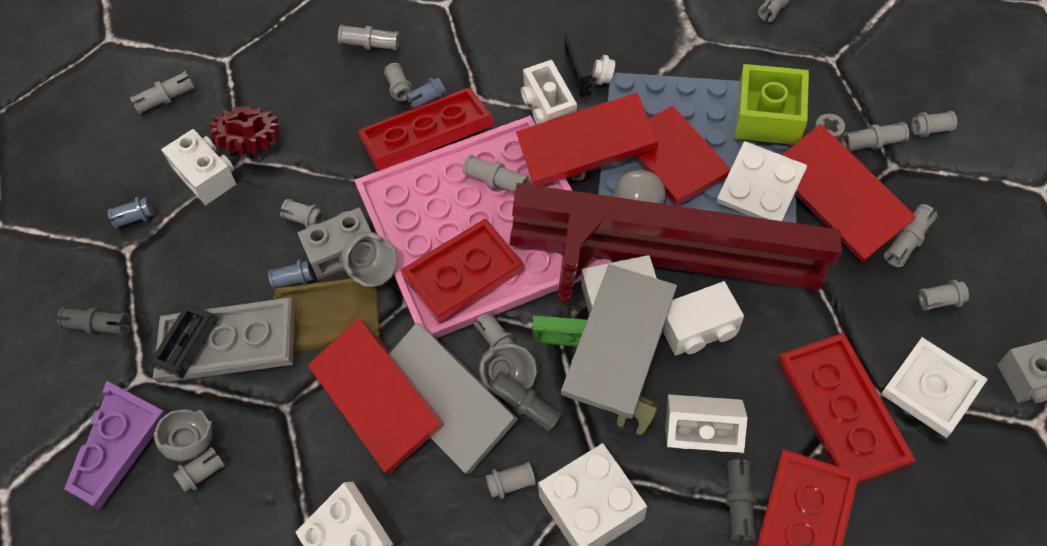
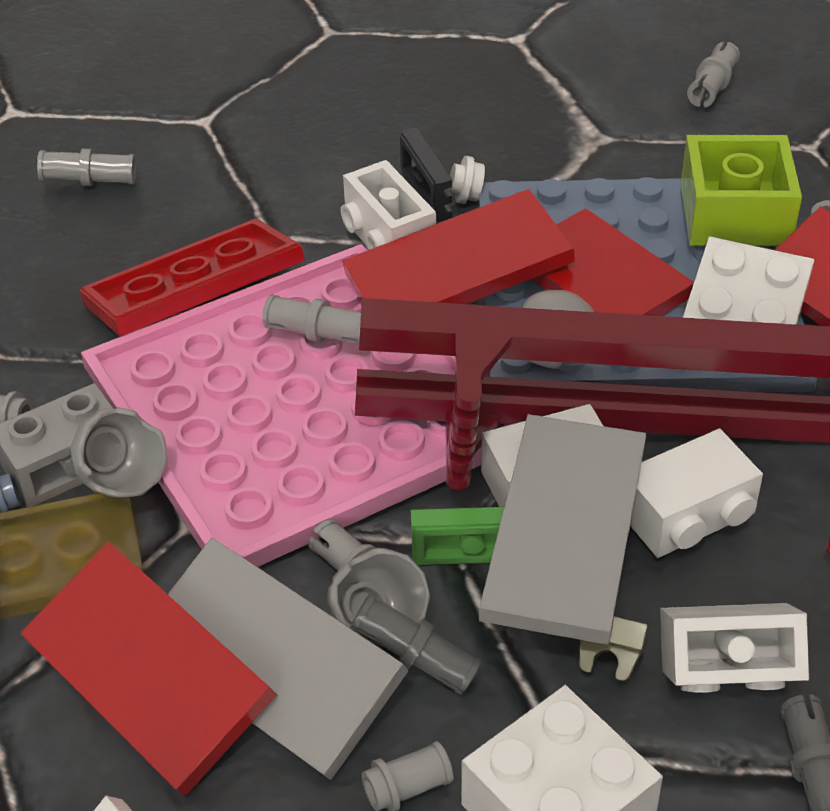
camera: 10 degrees left, 15 degrees down
(398, 83) = (144, 227): light grey pin -> none
(429, 92) = (188, 230): sand blue pin -> none
(462, 270) = (279, 461): red tile -> none

